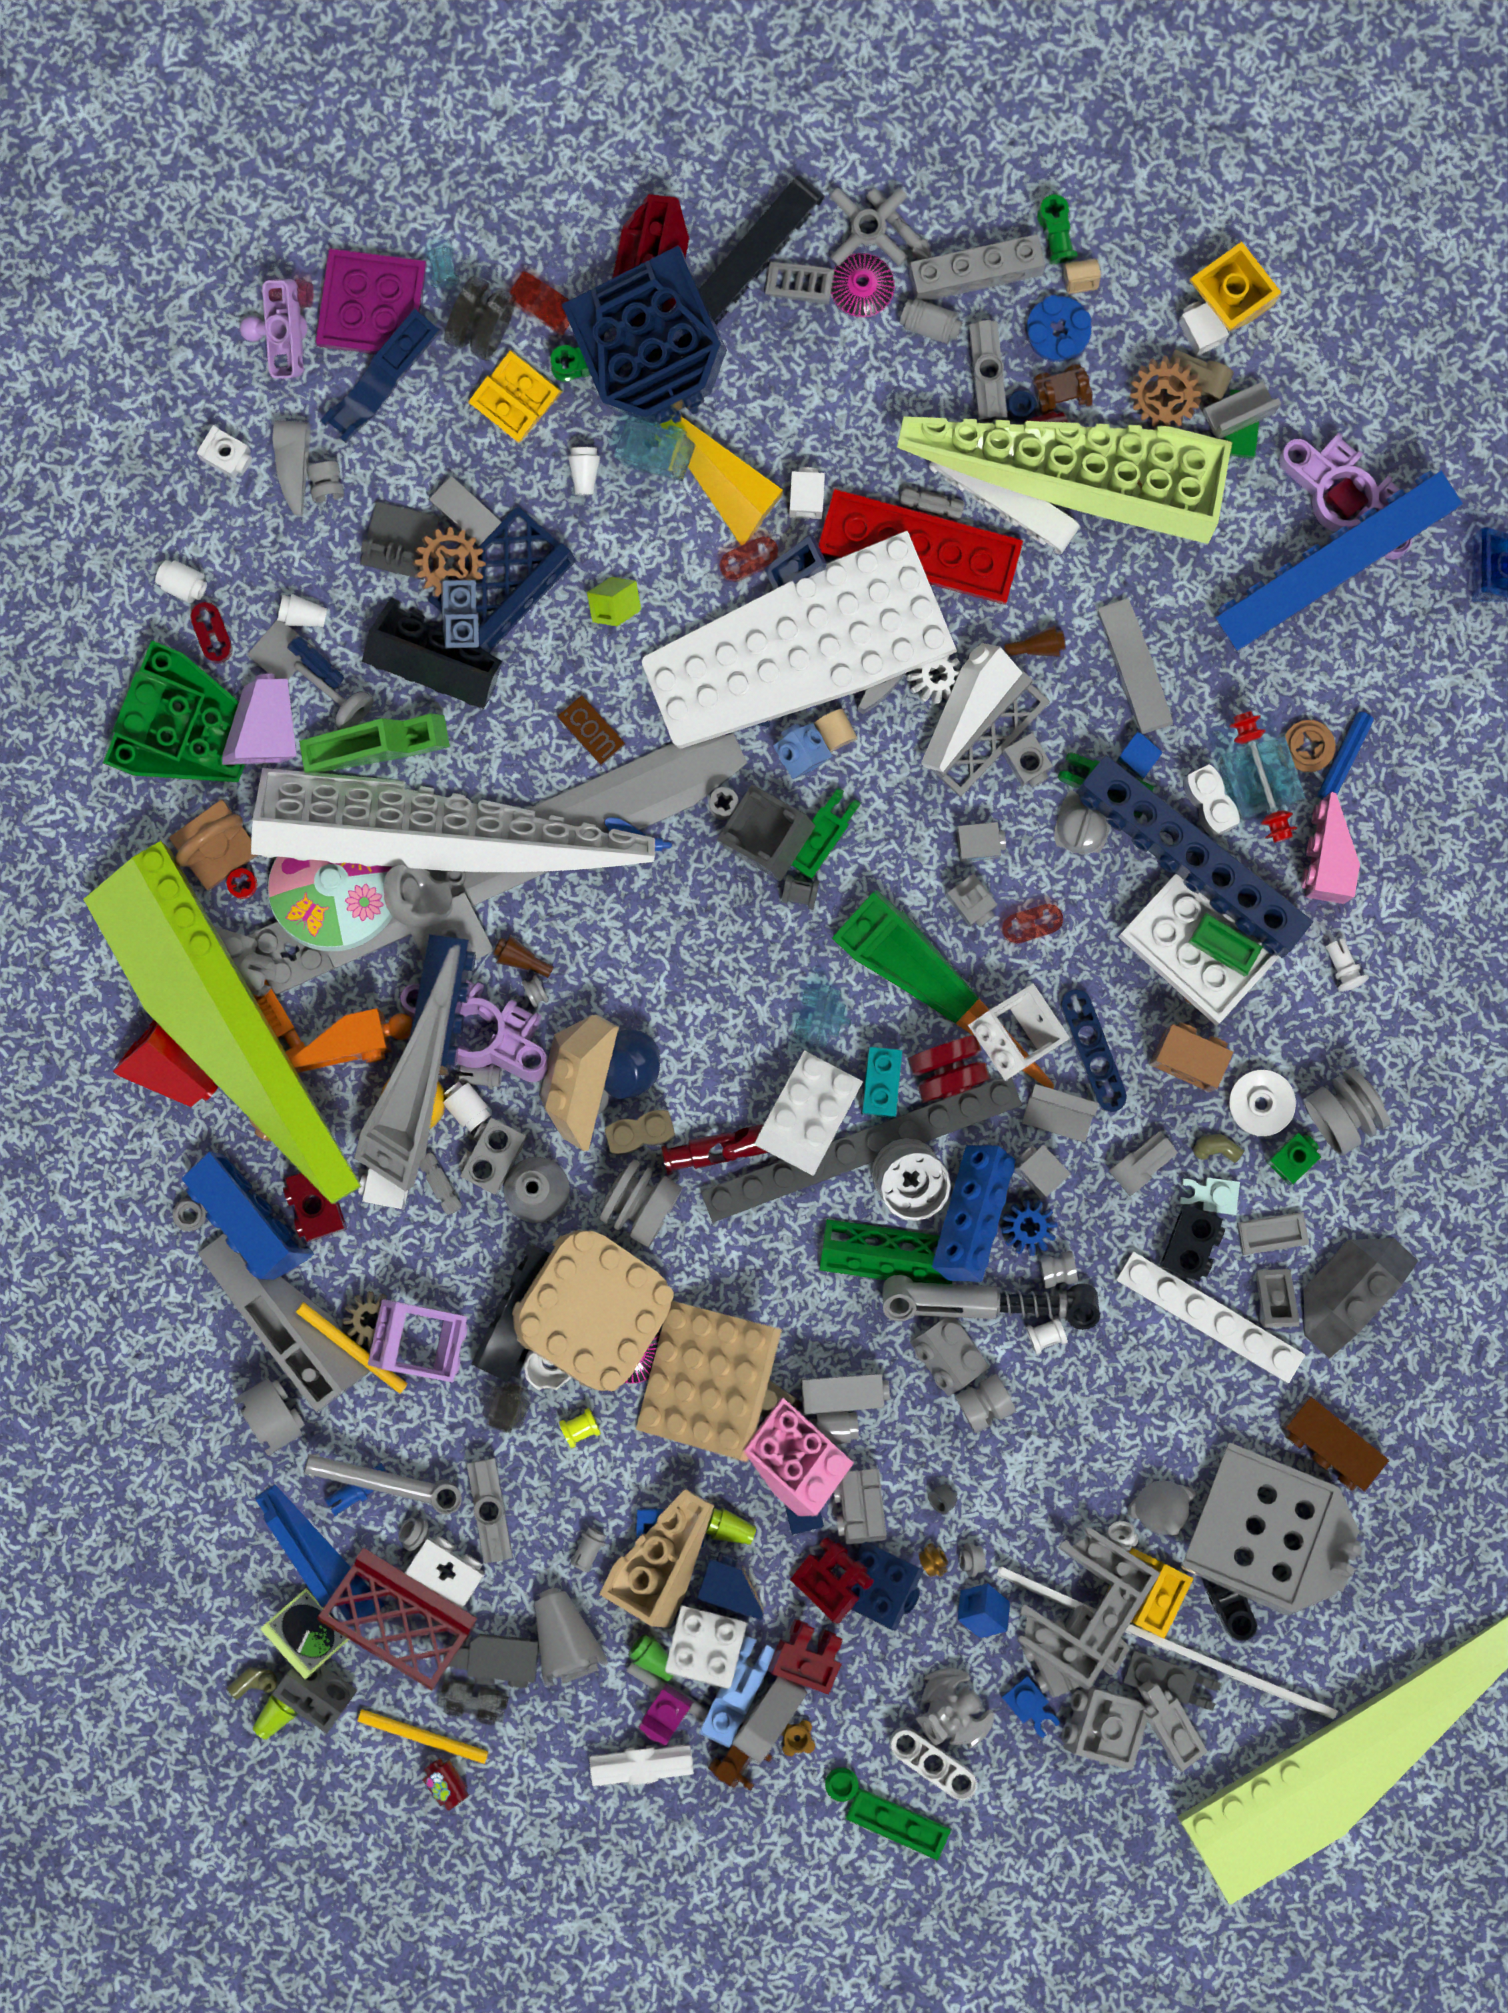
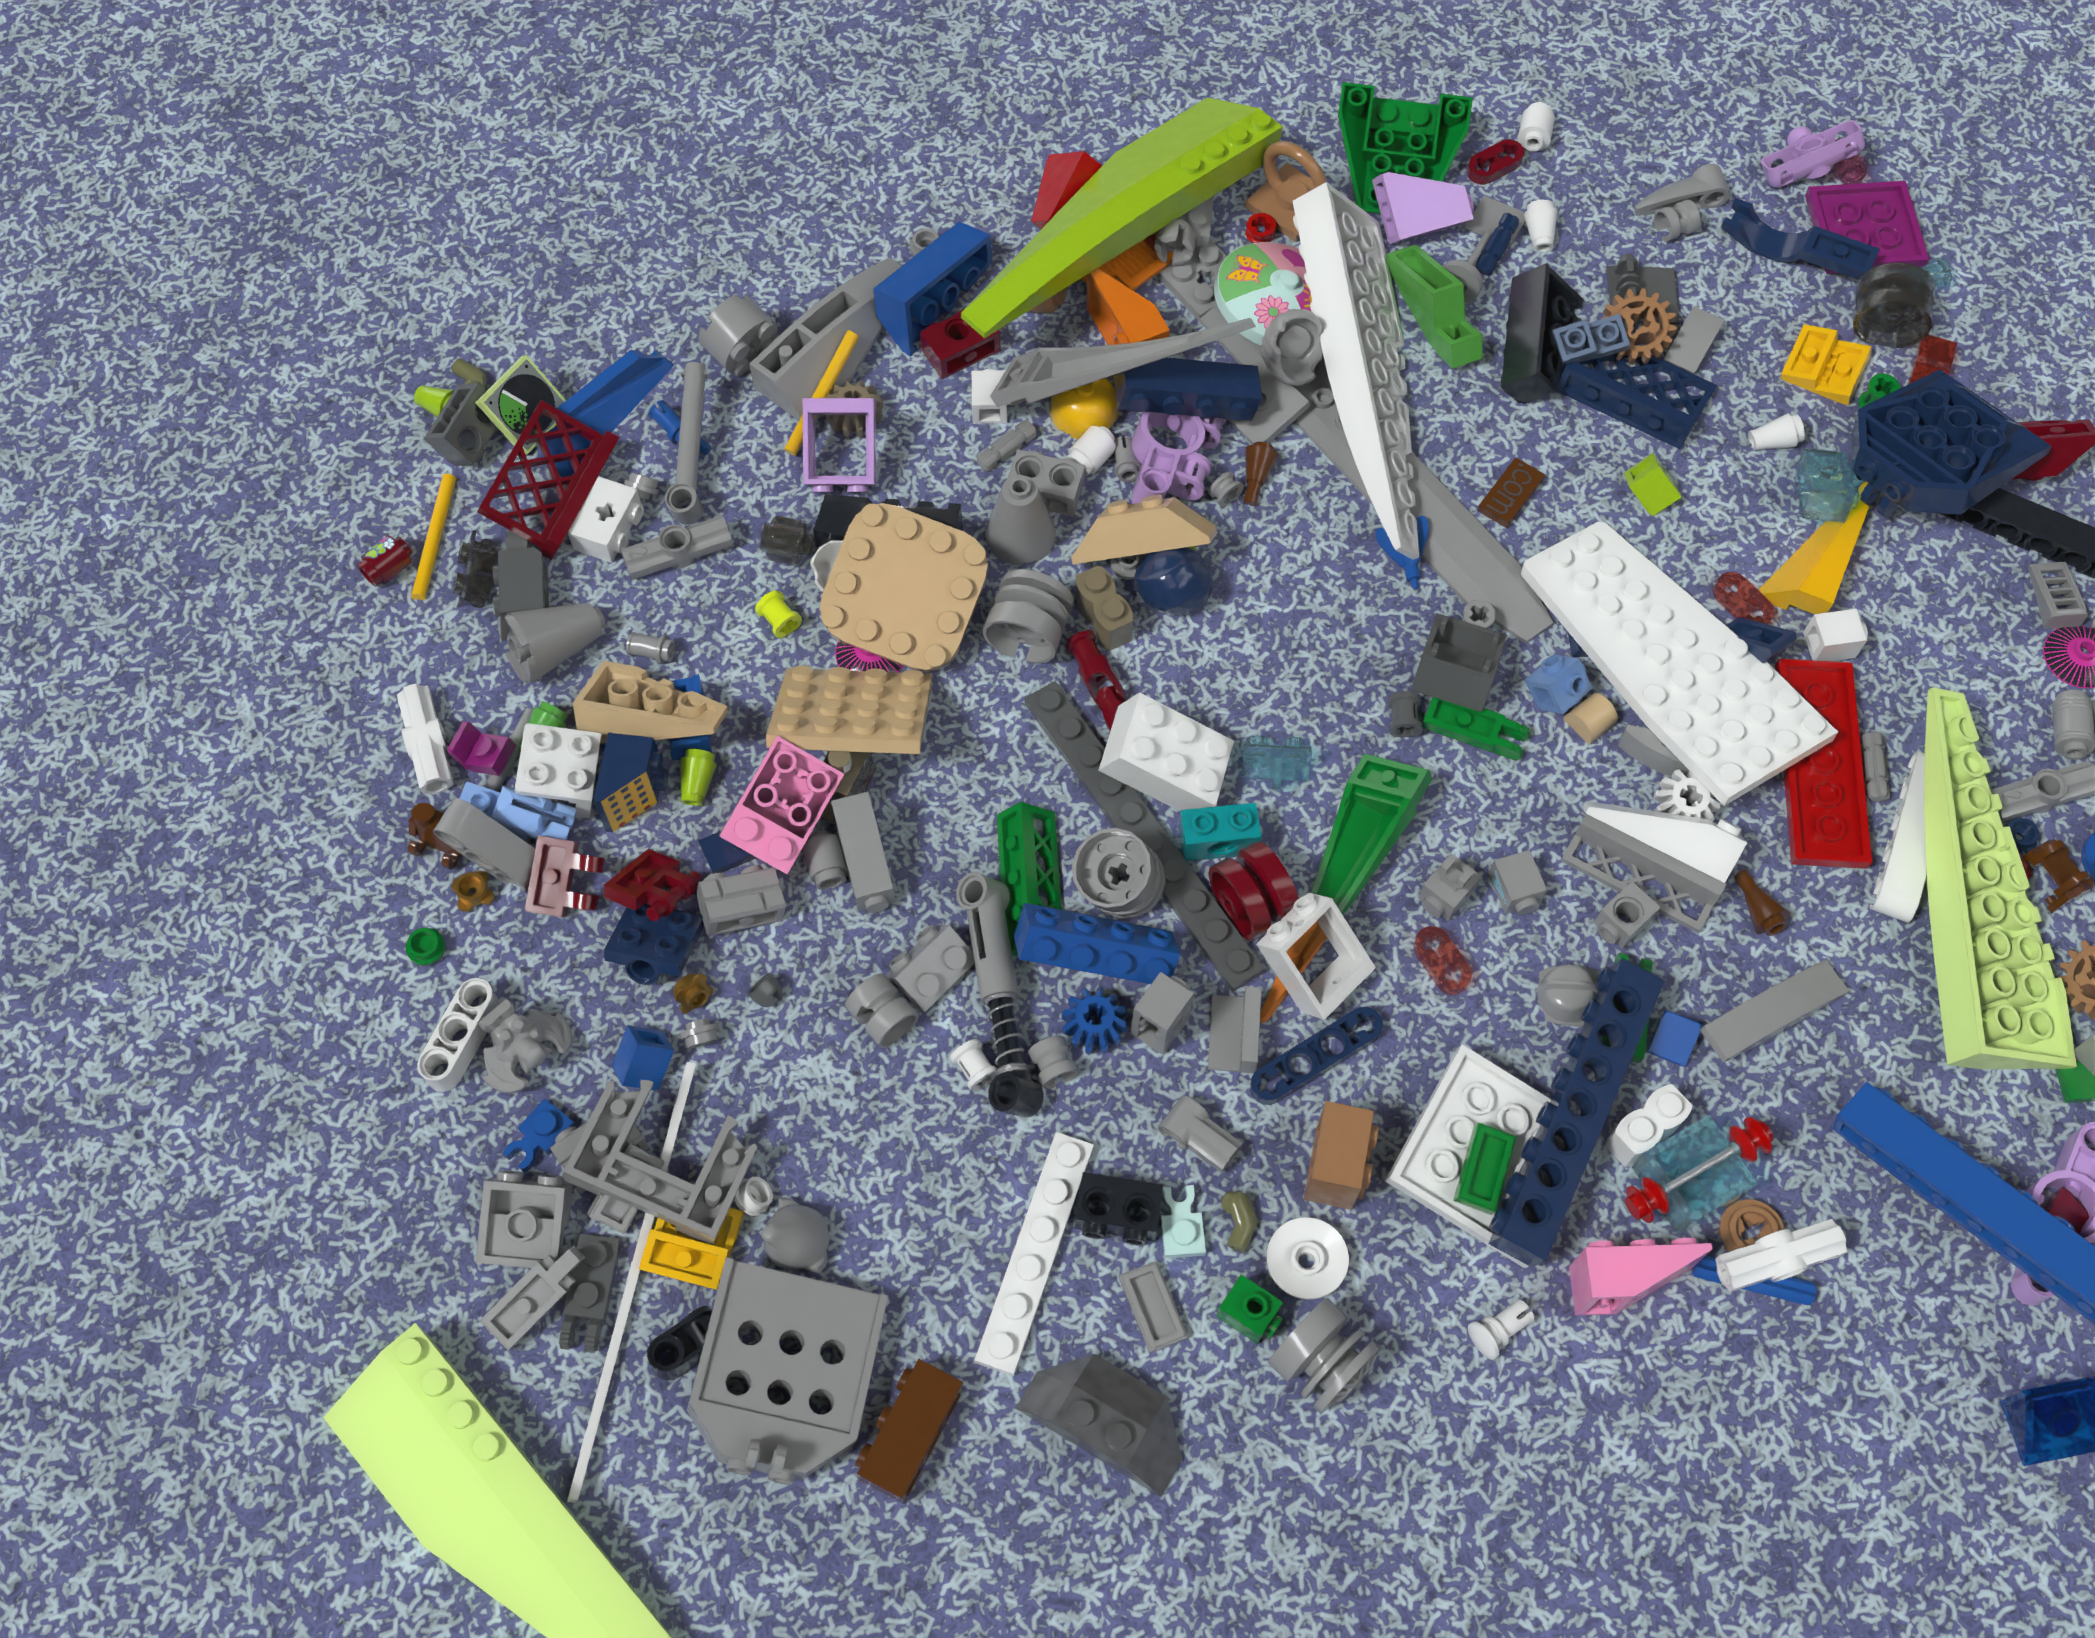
camera: 80 degrees right, 20 degrees down
(232, 464) = (1673, 136): white brick -> none
(898, 1824) = (386, 1016): green tile -> none
(1277, 1298) = (1074, 1320): light grey slope -> none
(1339, 734) = (1781, 1255): none -> white piece

